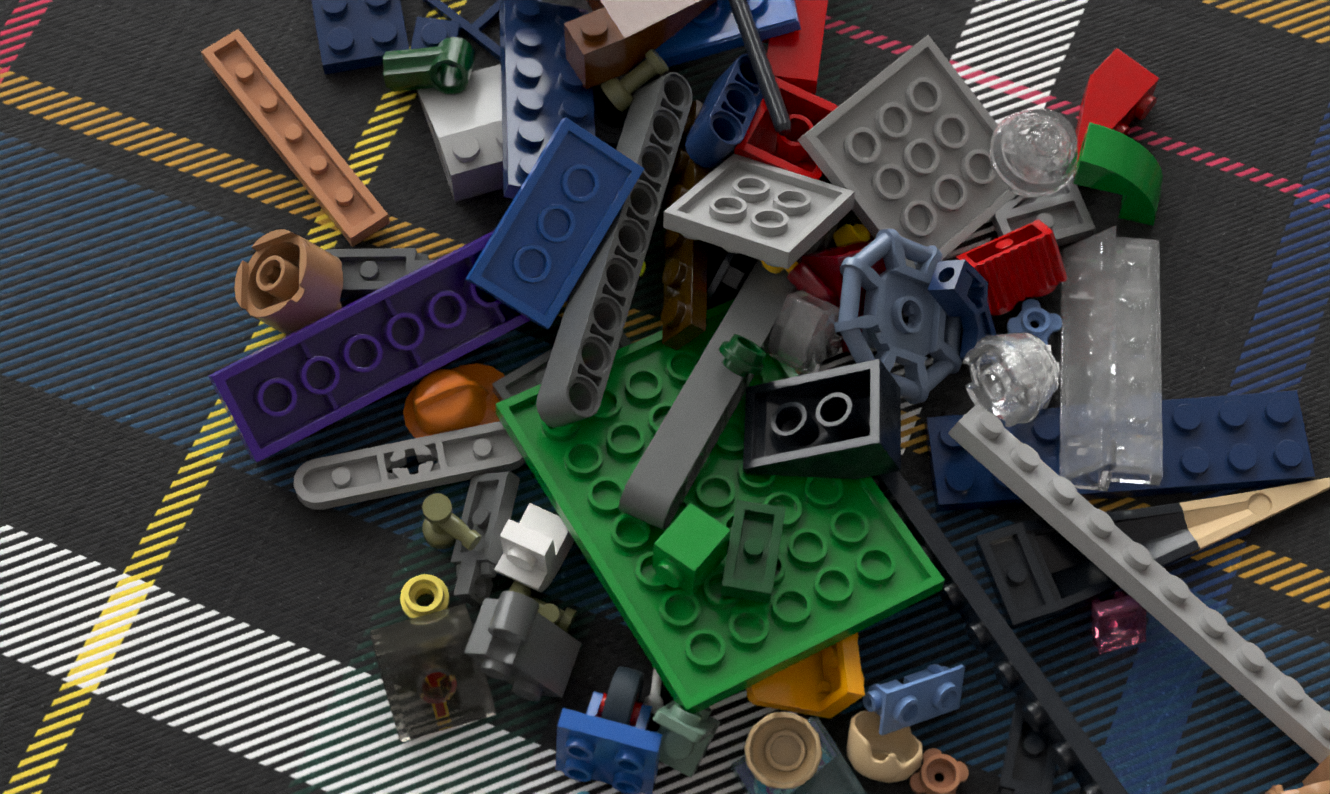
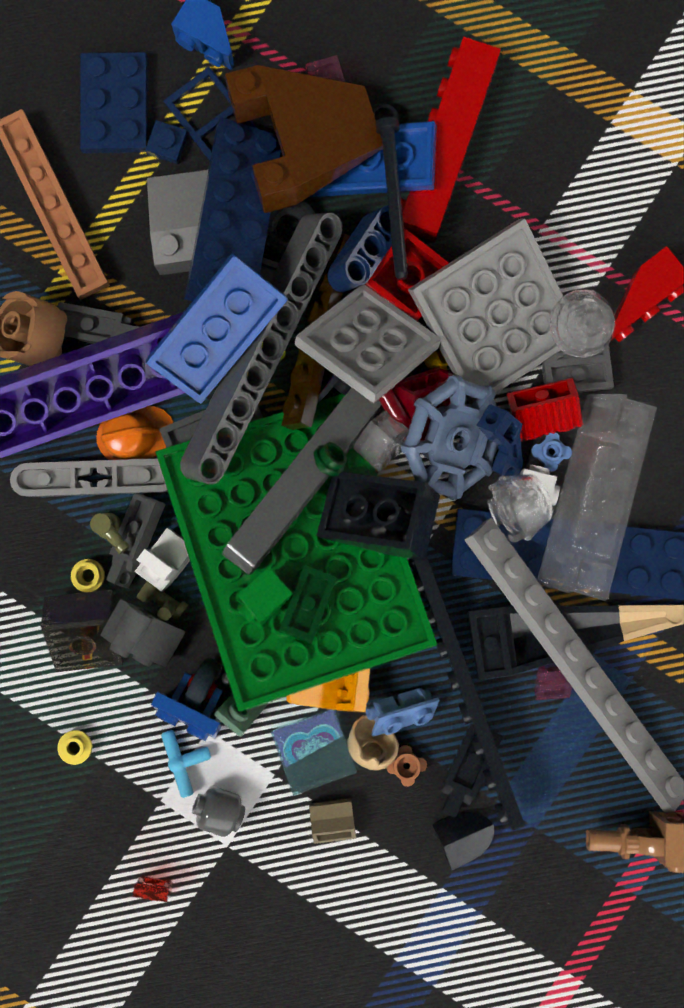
camera: 15 degrees right, 20 degrees up
(429, 68) = (165, 169): dark green piece -> none
(620, 90) = (290, 216): olive piece -> none
(783, 750) = (302, 737): tan hair -> none
(1122, 167) = (642, 348): green brick -> none

